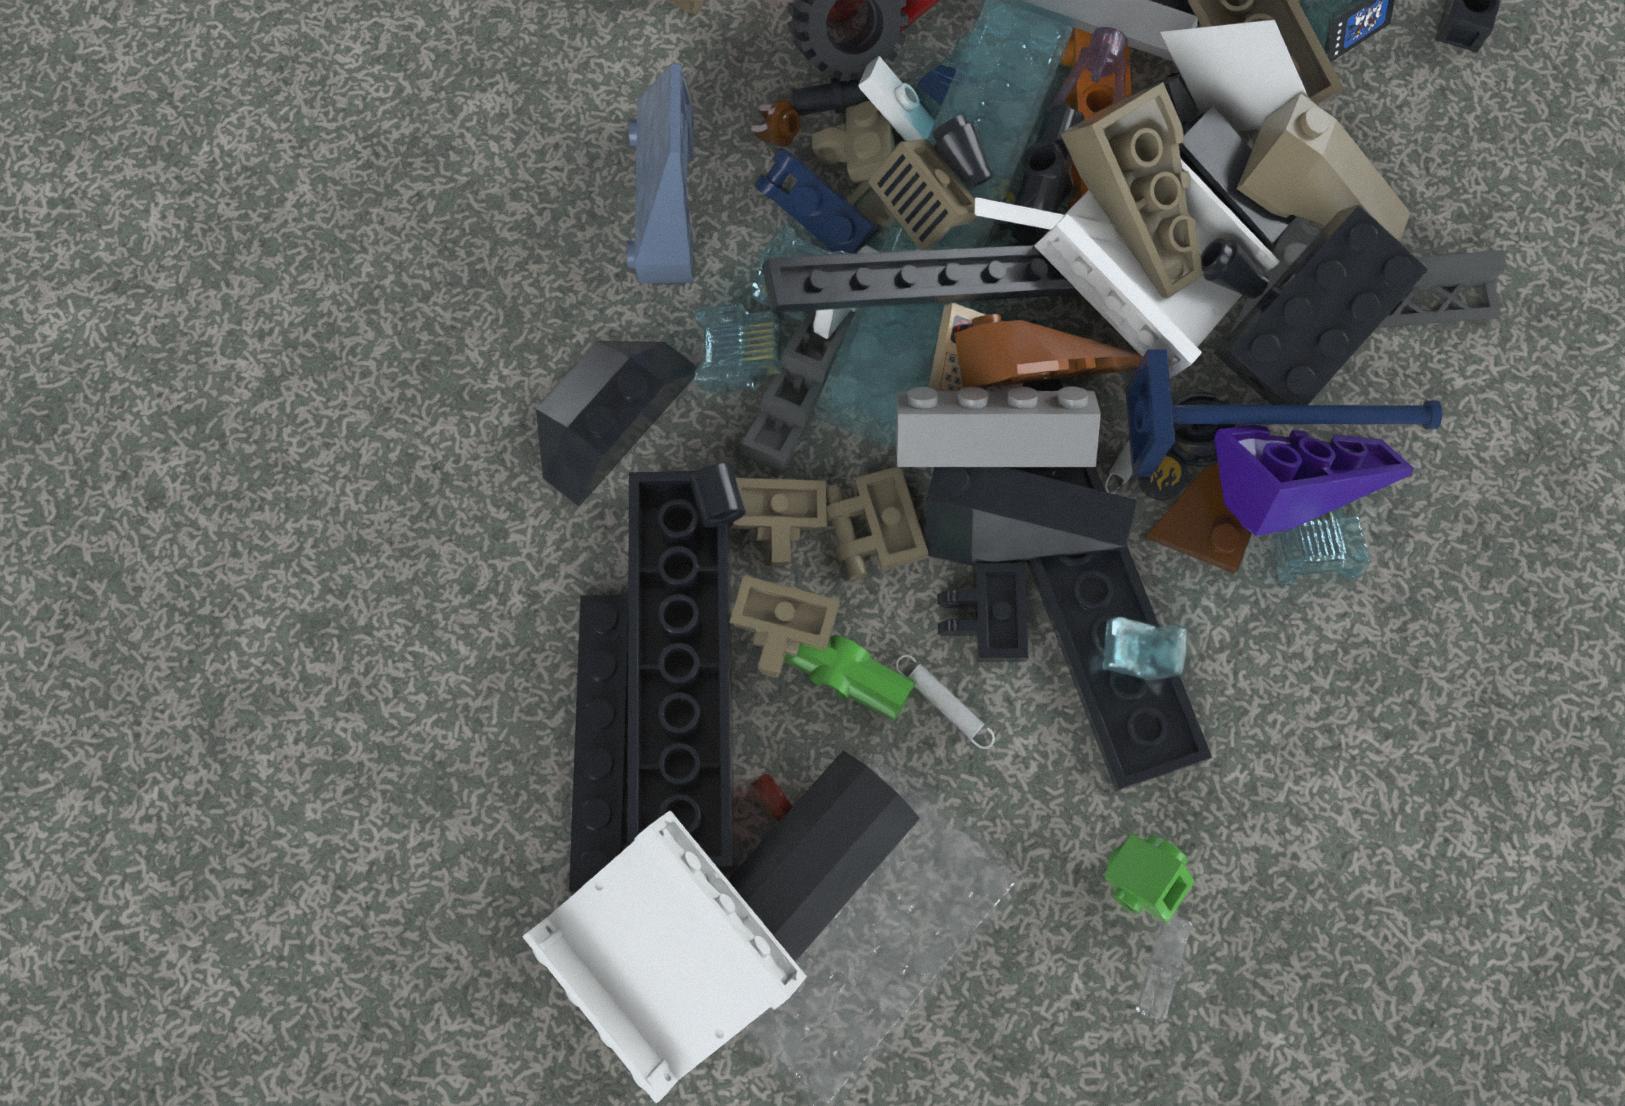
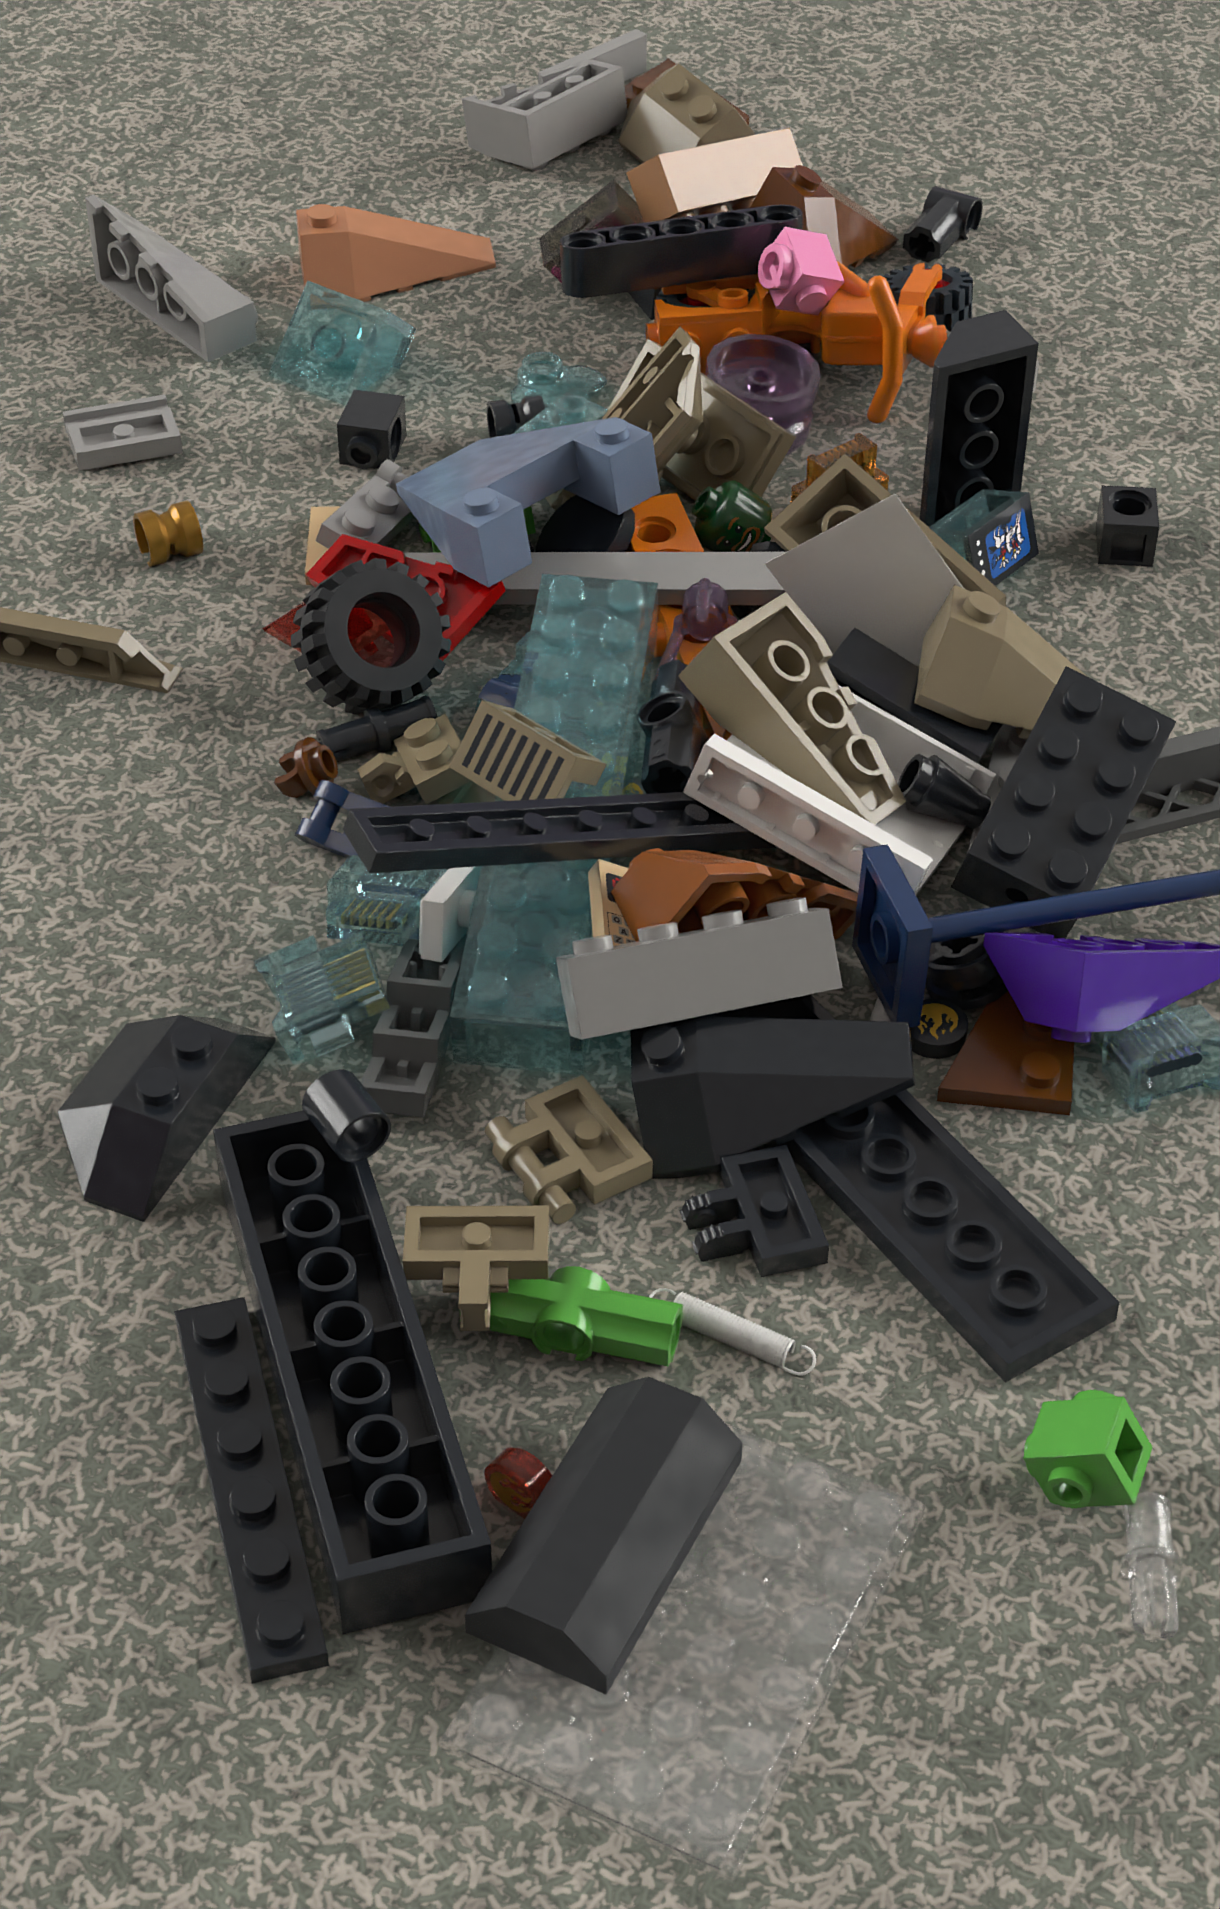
camera: 15 degrees left, 30 degrees down
(663, 147) = (177, 823): sand blue wedge -> none
(664, 956) = (425, 1683): white panel -> none
(780, 511) = (437, 1156): dark tan hinge -> none
(896, 101) = (446, 703): white plate -> none
(963, 151) = (560, 706): black cone -> none
(1040, 218) = (649, 756): white sticker -> none
(1144, 649) = (980, 1191): clear light blue bracket -> none

